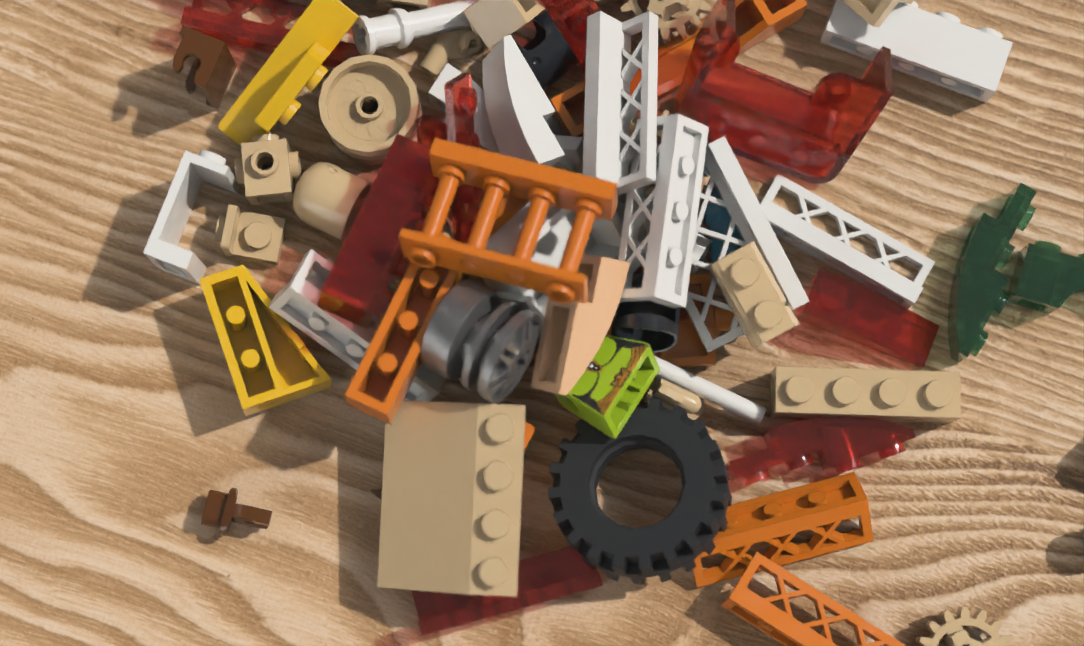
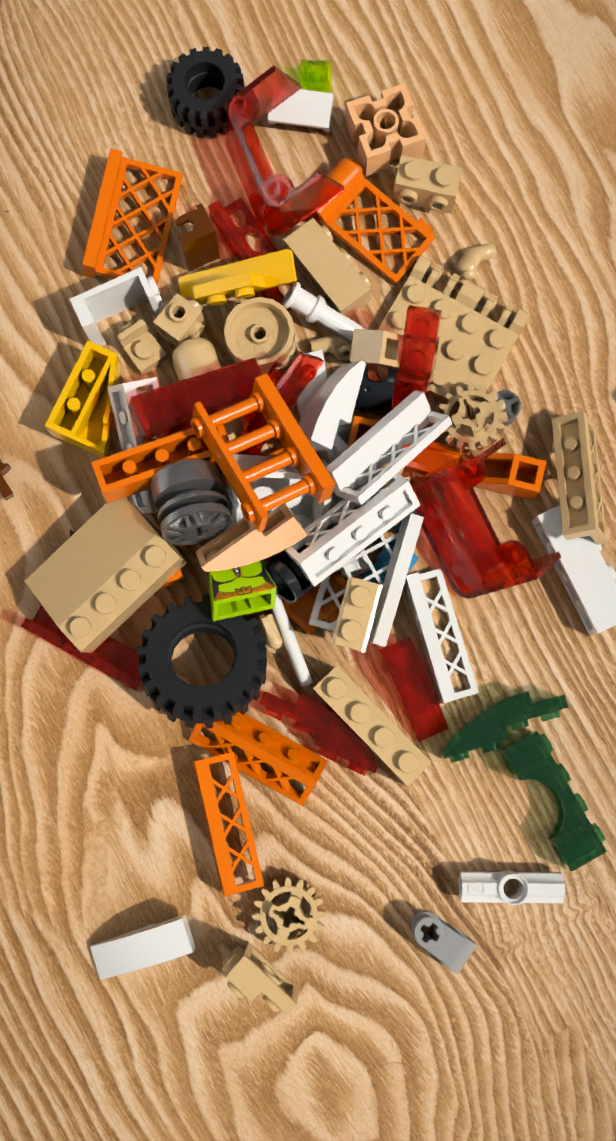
camera: 50 degrees right, 0 degrees up
(70, 124) = (106, 211): none -> orange fence

